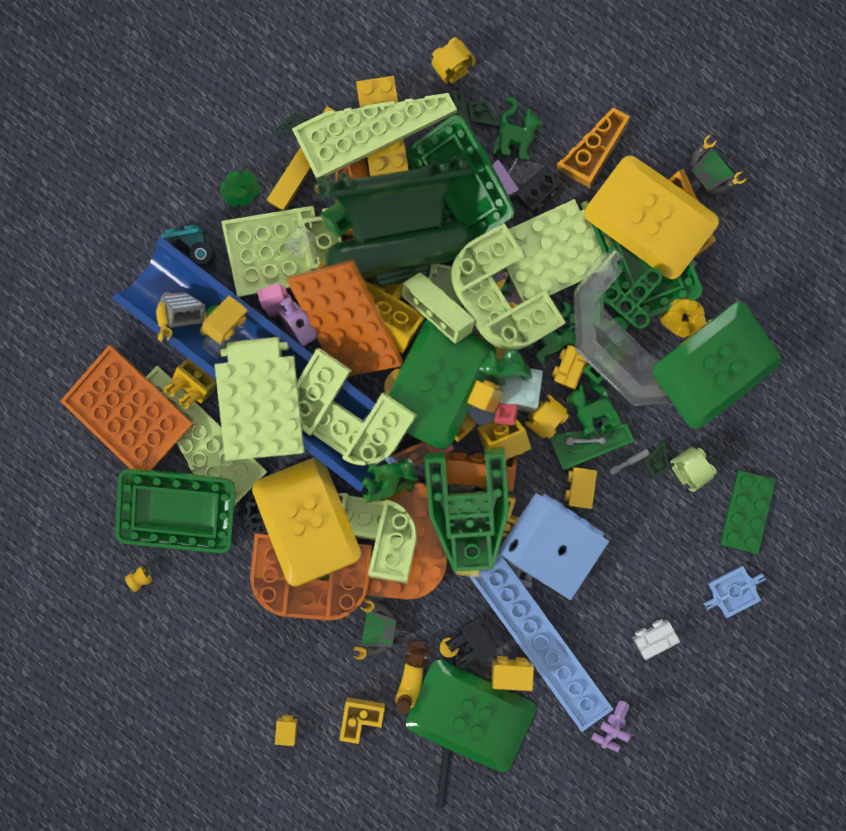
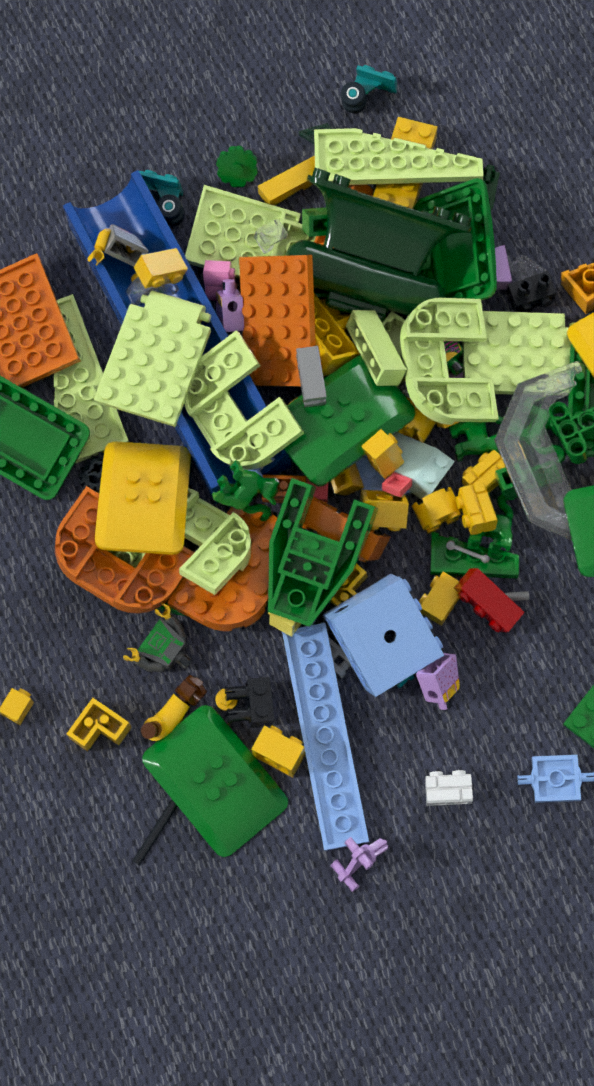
camera: 25 degrees right, 15 degrees down
(194, 381) = (100, 321): yellow brick -> none
(308, 76) = (367, 79): none -> plate
(399, 363) = (311, 376): none -> light grey piece
(452, 60) = (502, 138): yellow brick -> none
(482, 113) = (509, 200): dark green piece -> none
(505, 368) = (417, 434): green animal -> none
(514, 135) = (534, 233): green animal -> none
(580, 406) = (477, 508): none -> yellow brick
(613, 559) = (440, 680): none -> lavender torso
(621, 476) = (488, 600): none -> red brick
(657, 461) = (535, 608): dark green piece -> none
(693, 468) = (568, 628): yellowish green brick -> none

